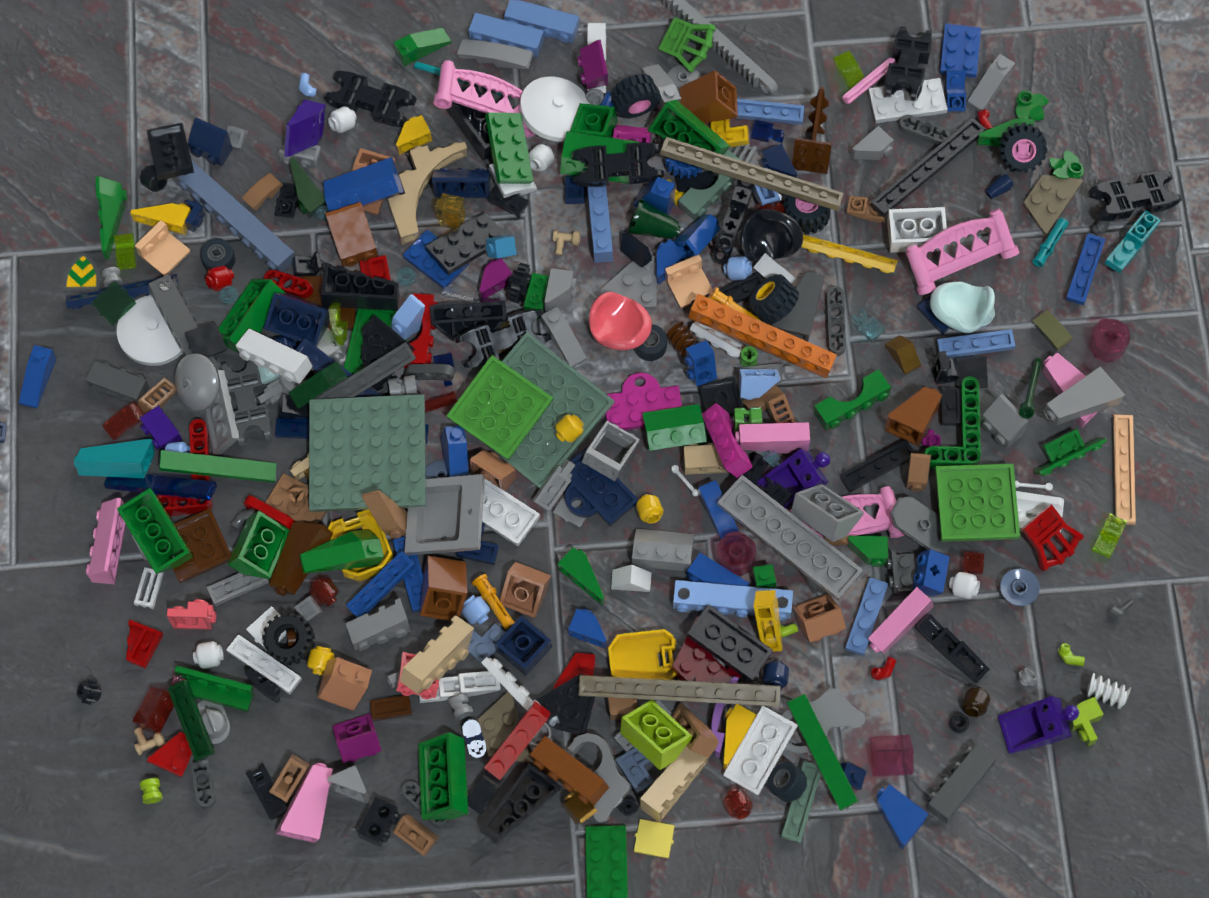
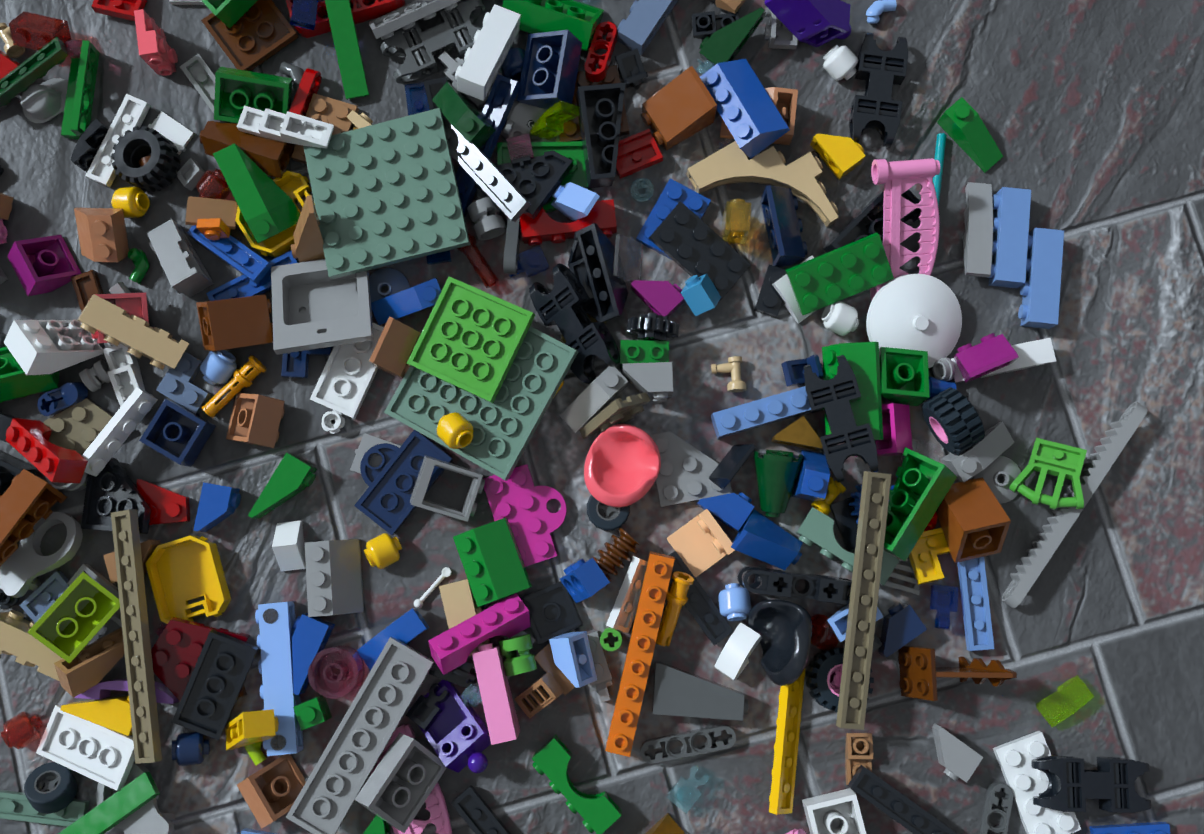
camera: 85 degrees right, 15 degrees up
(208, 654) = (117, 75): white head -> none
(295, 517) = (285, 127): none -> white slope
(347, 594) = (211, 208): none -> medium nougat slope
(352, 354) = (519, 146): none -> clear pink tile
(363, 588) = (213, 228): none -> orange plate
(375, 662) = (141, 264): none -> green arm
(431, 726) = (50, 345): none -> white slope
(539, 537) = (328, 417): none -> white plate
(554, 485) = (390, 428): light grey hinge -> none
(581, 319) = (616, 412): none -> dark tan wing
(622, 201) = (799, 435): none -> pearl gold slope
(773, 299) = (692, 659): black wheel -> none
(867, 82) = (1053, 731): bright pink axle -> none

